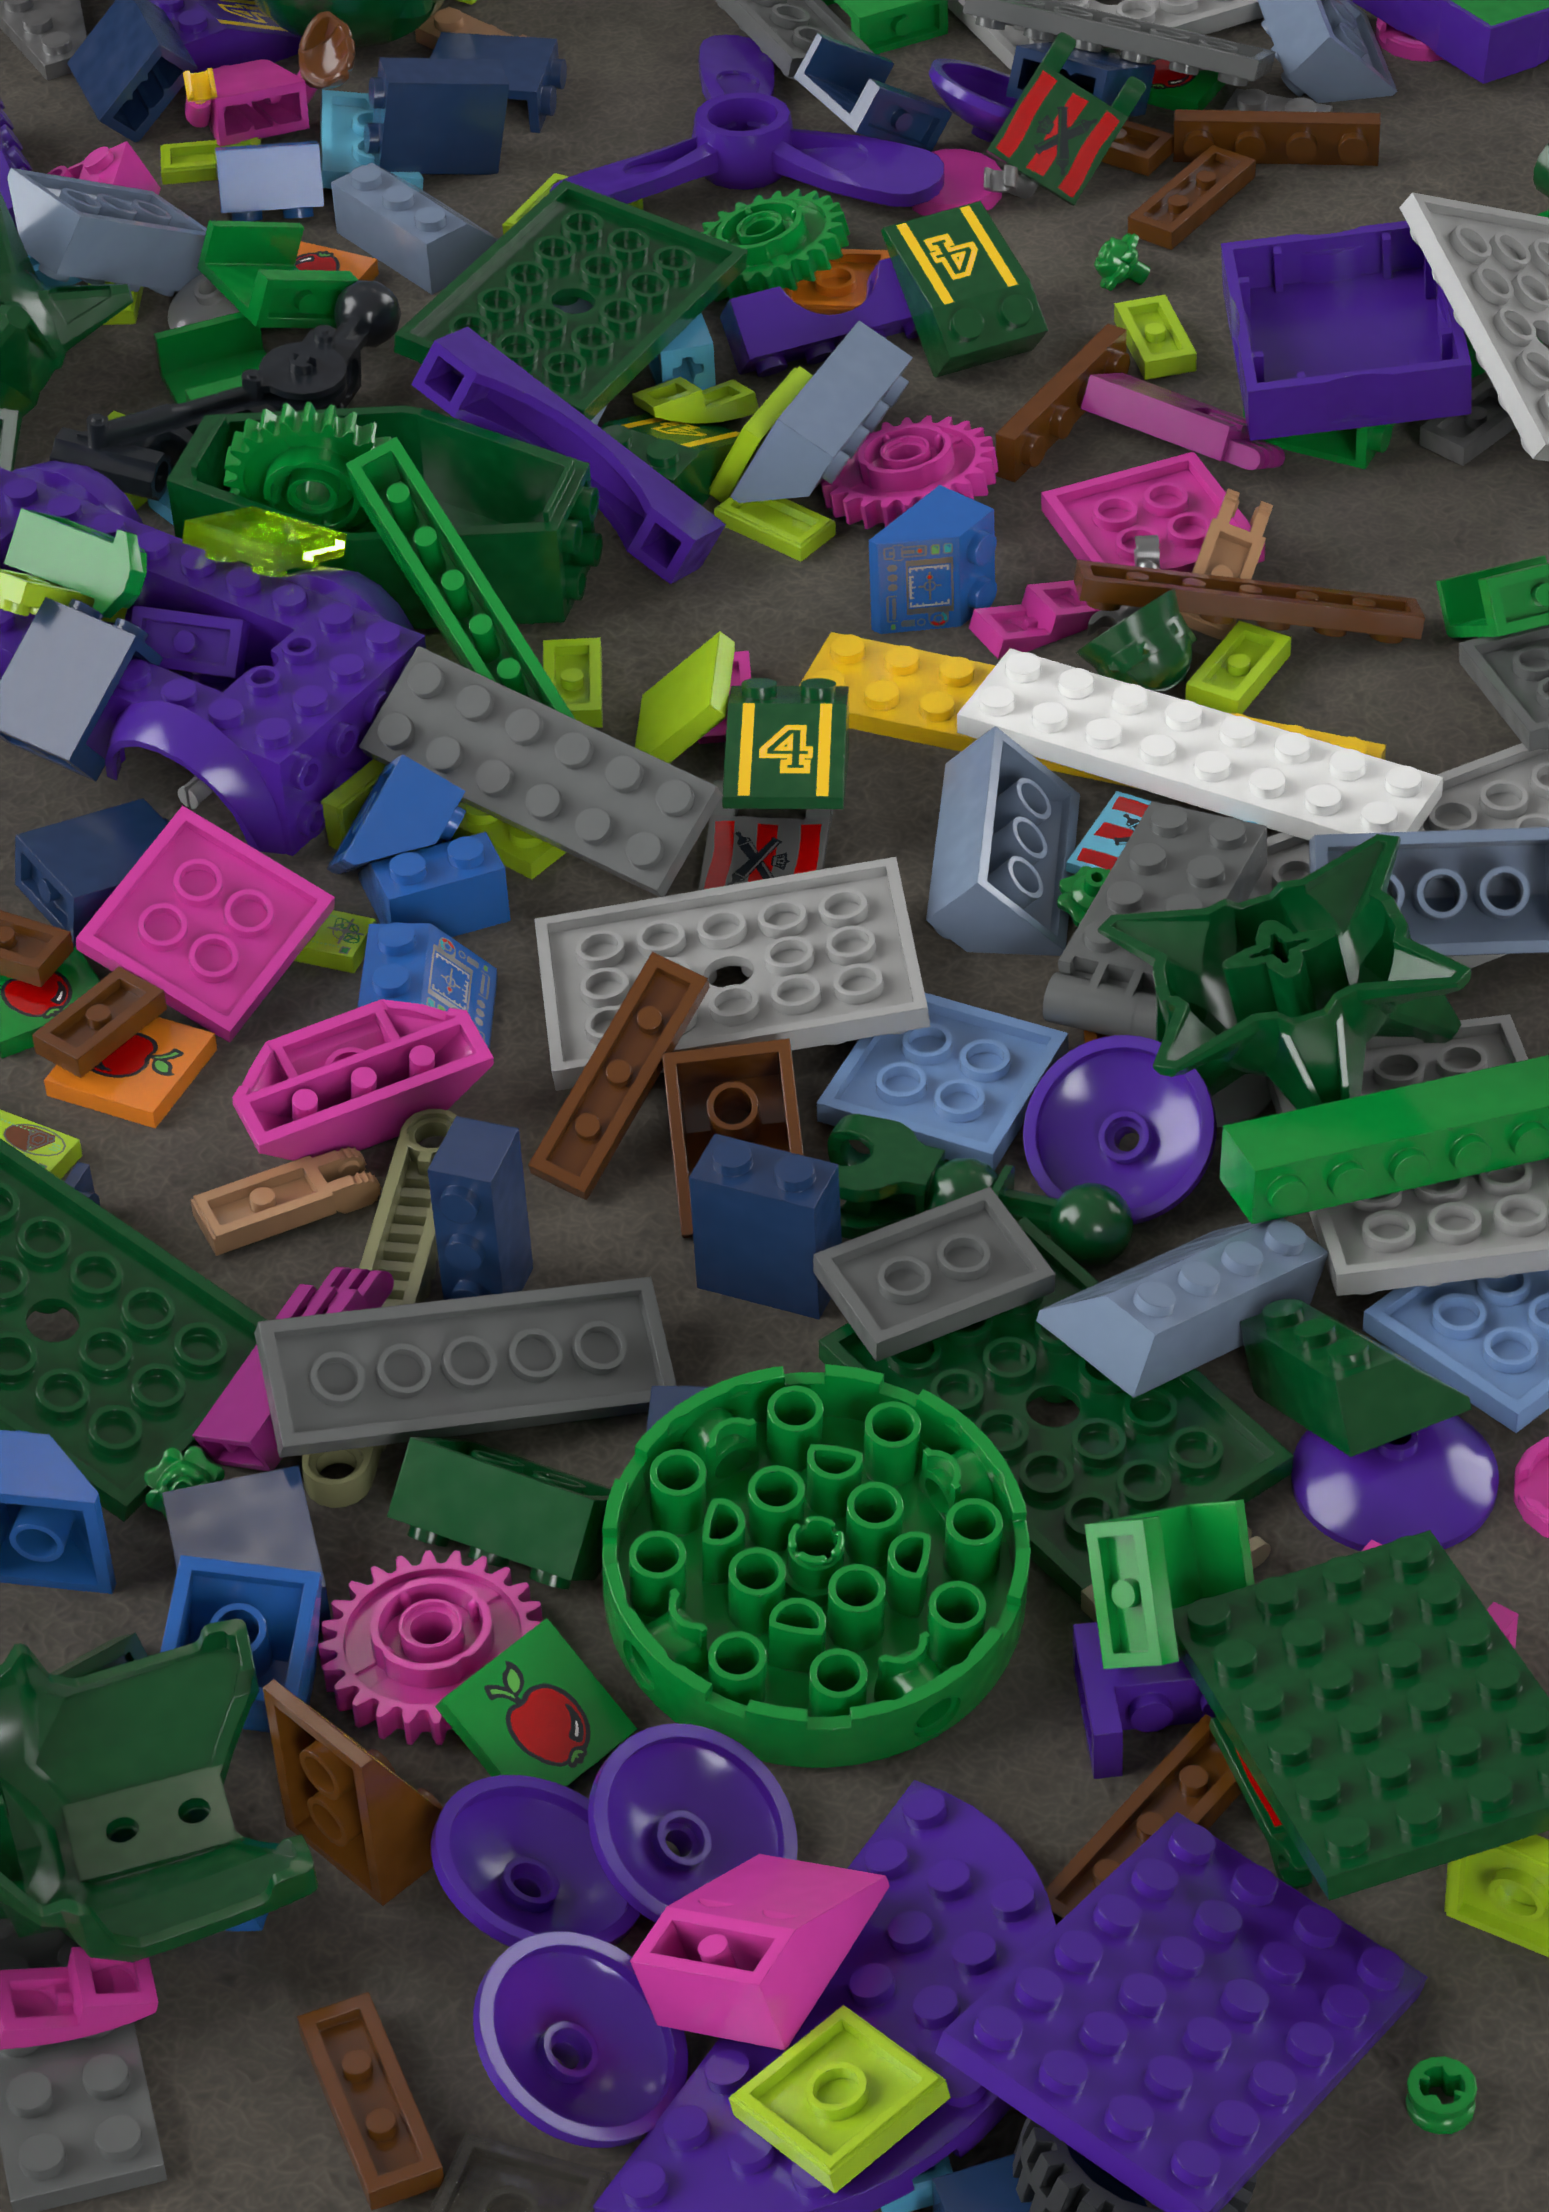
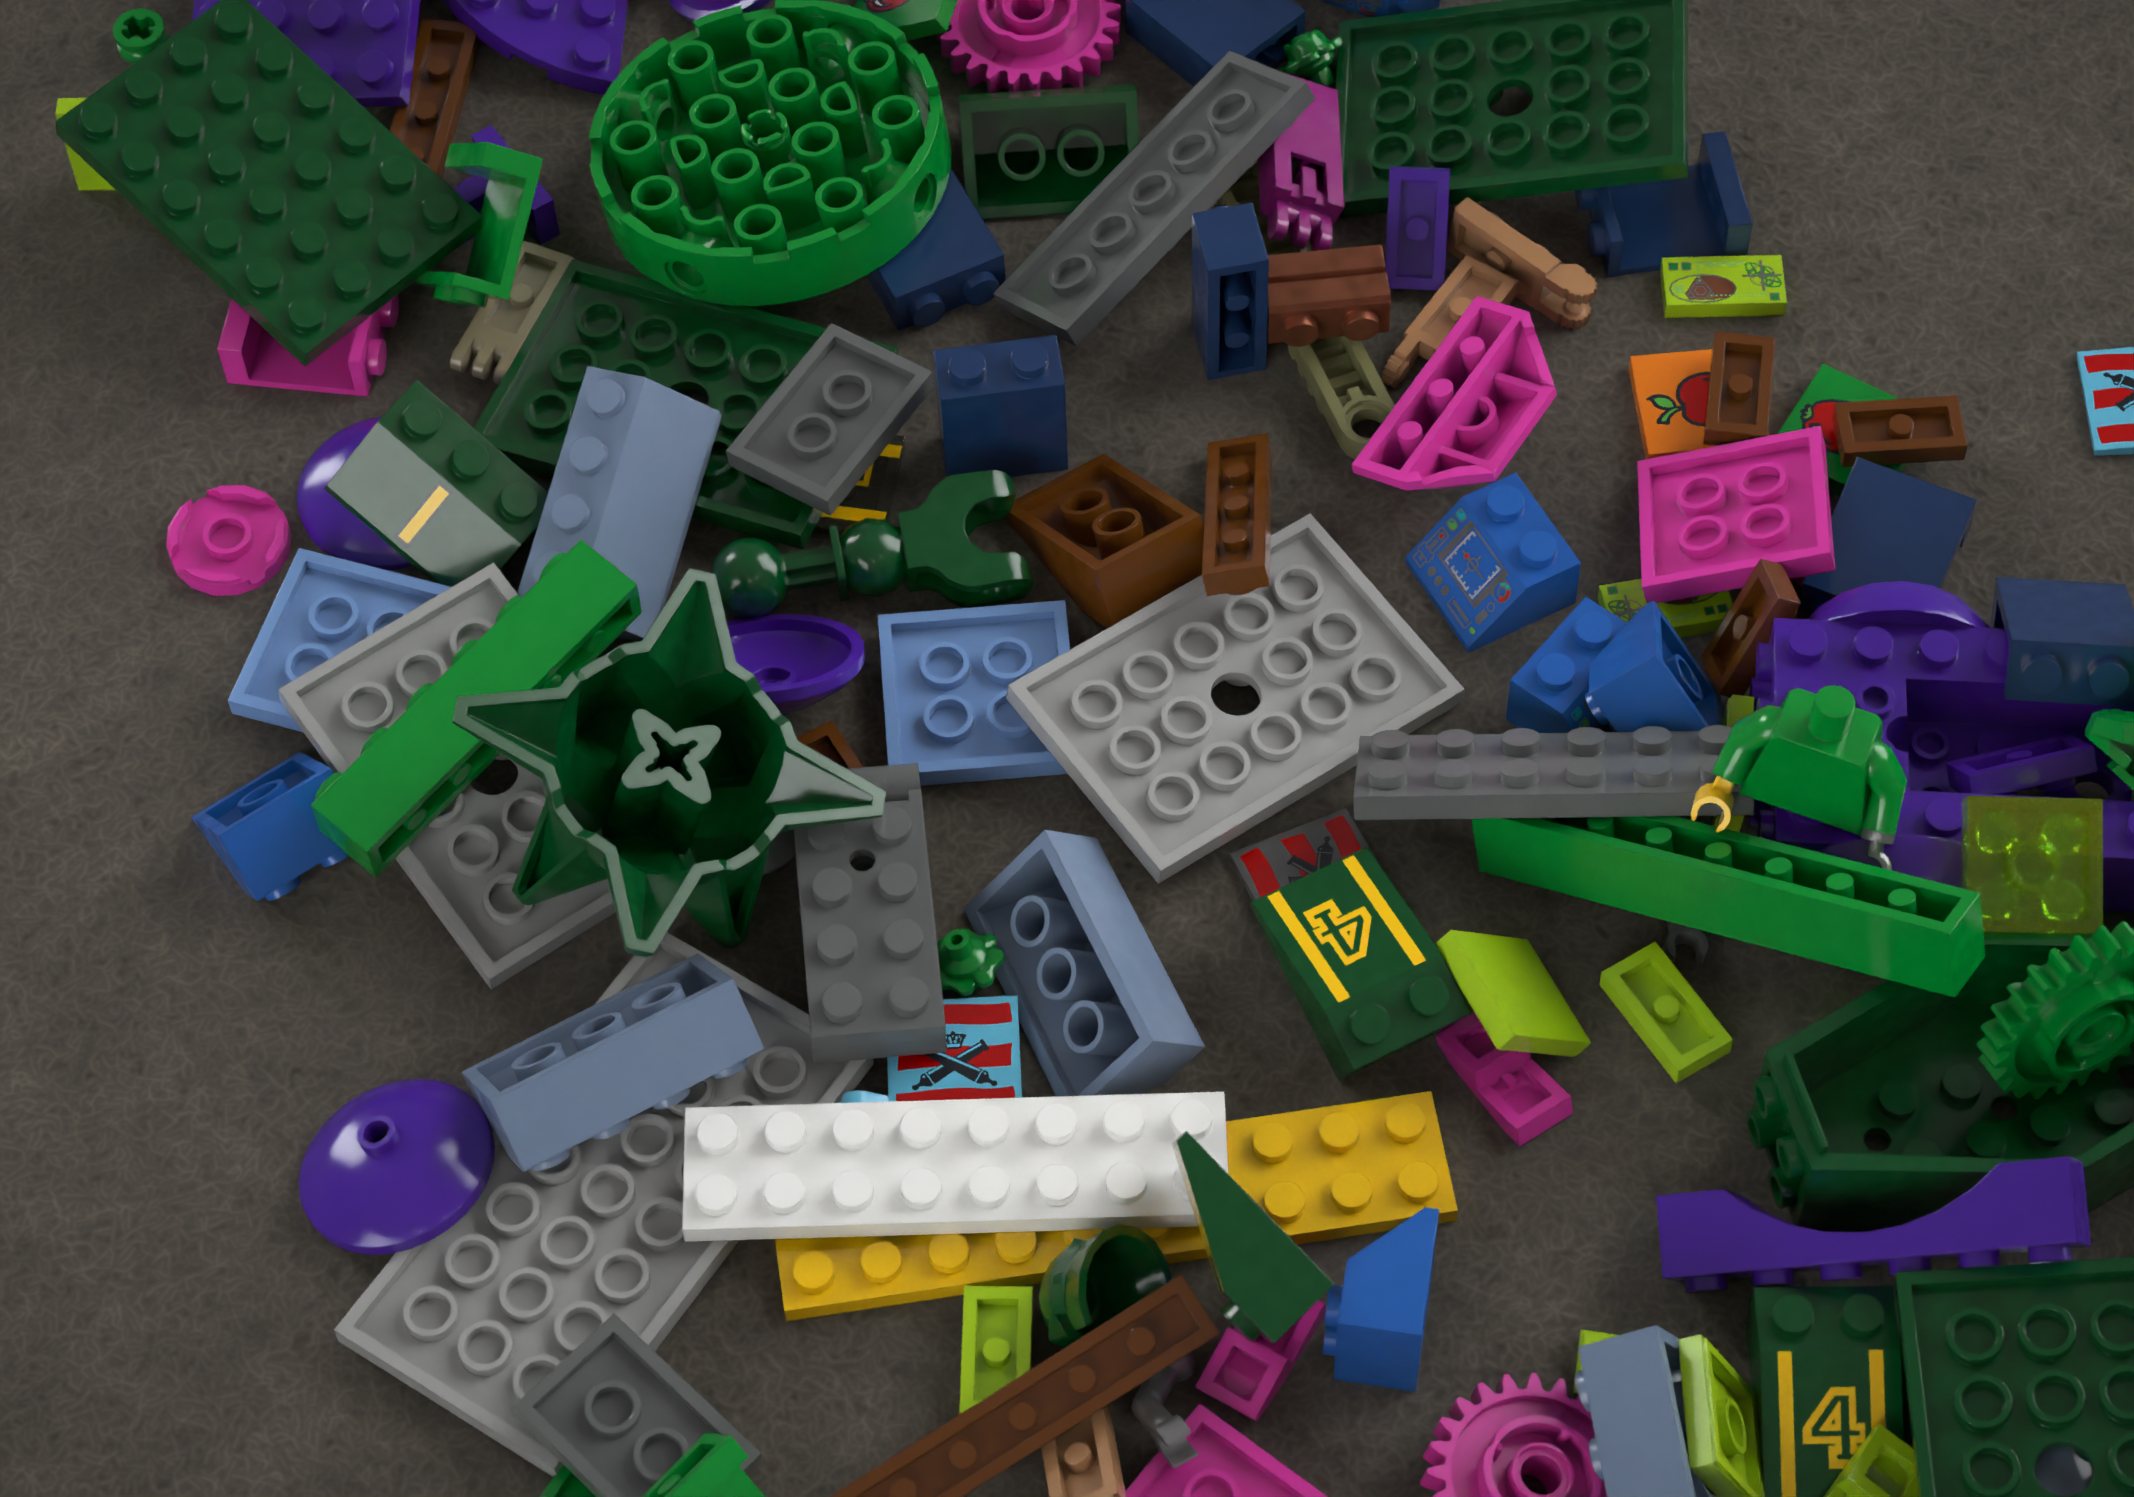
camera: 150 degrees right, 15 degrees up
(167, 1204) = (1544, 283): none -> medium nougat hinge
(242, 1259) = (1417, 227): none -> dark purple plate
(278, 831) = (1749, 621): none -> reddish brown plate
(371, 606) = (1816, 761): none -> green torso
(376, 1207) = (1328, 295): none -> copper brick
(1017, 576) = (1251, 1257): none -> dark green slope

